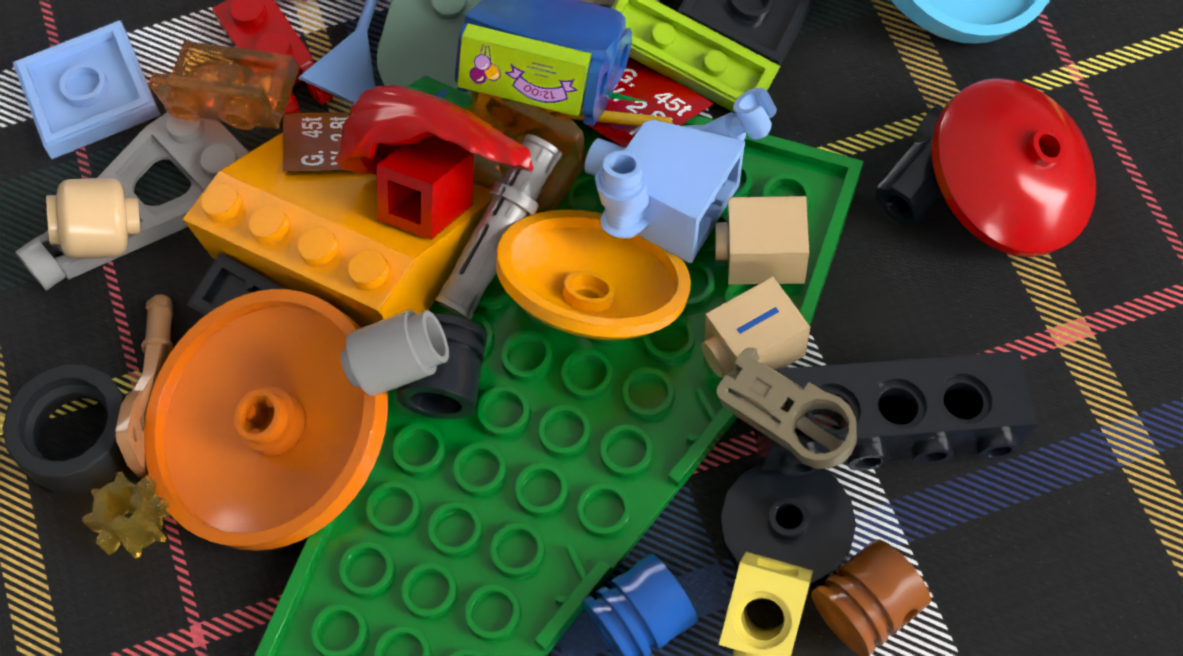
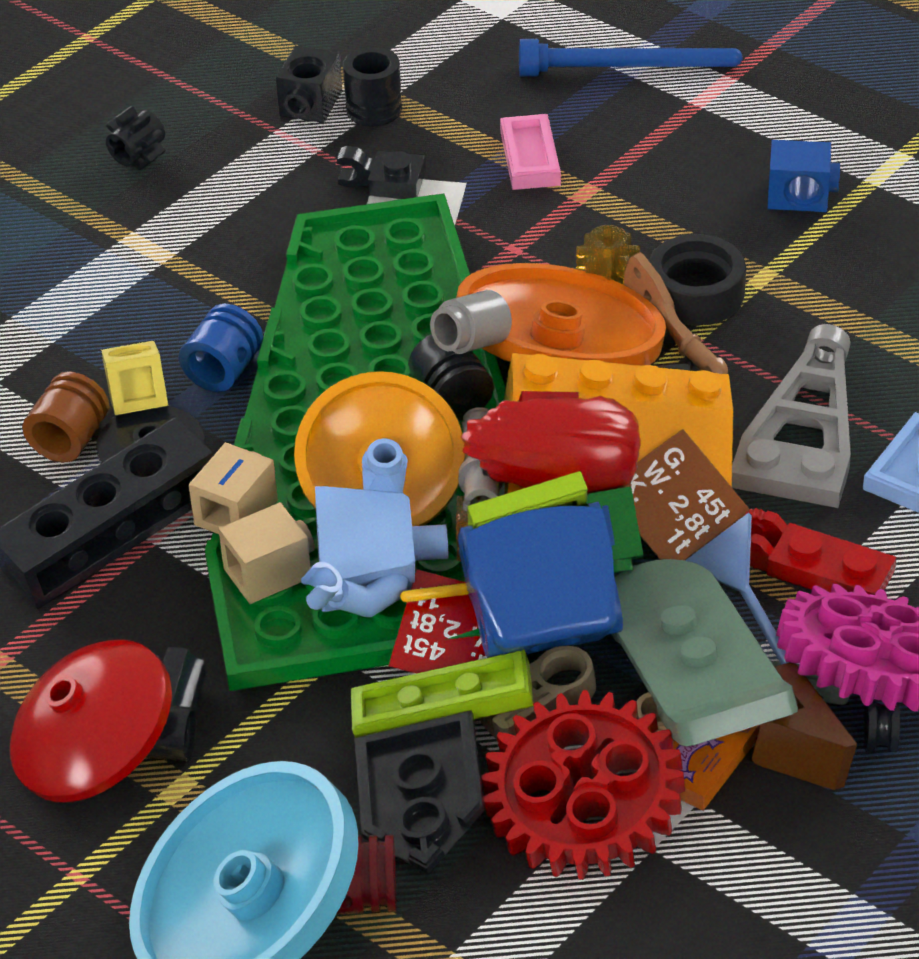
camera: 145 degrees right, 20 degrees down
(92, 218) = (801, 355): tan head -> none
(227, 85) = (795, 469): clear orange bracket -> none
(779, 406) = (159, 418): dark tan piece -> none

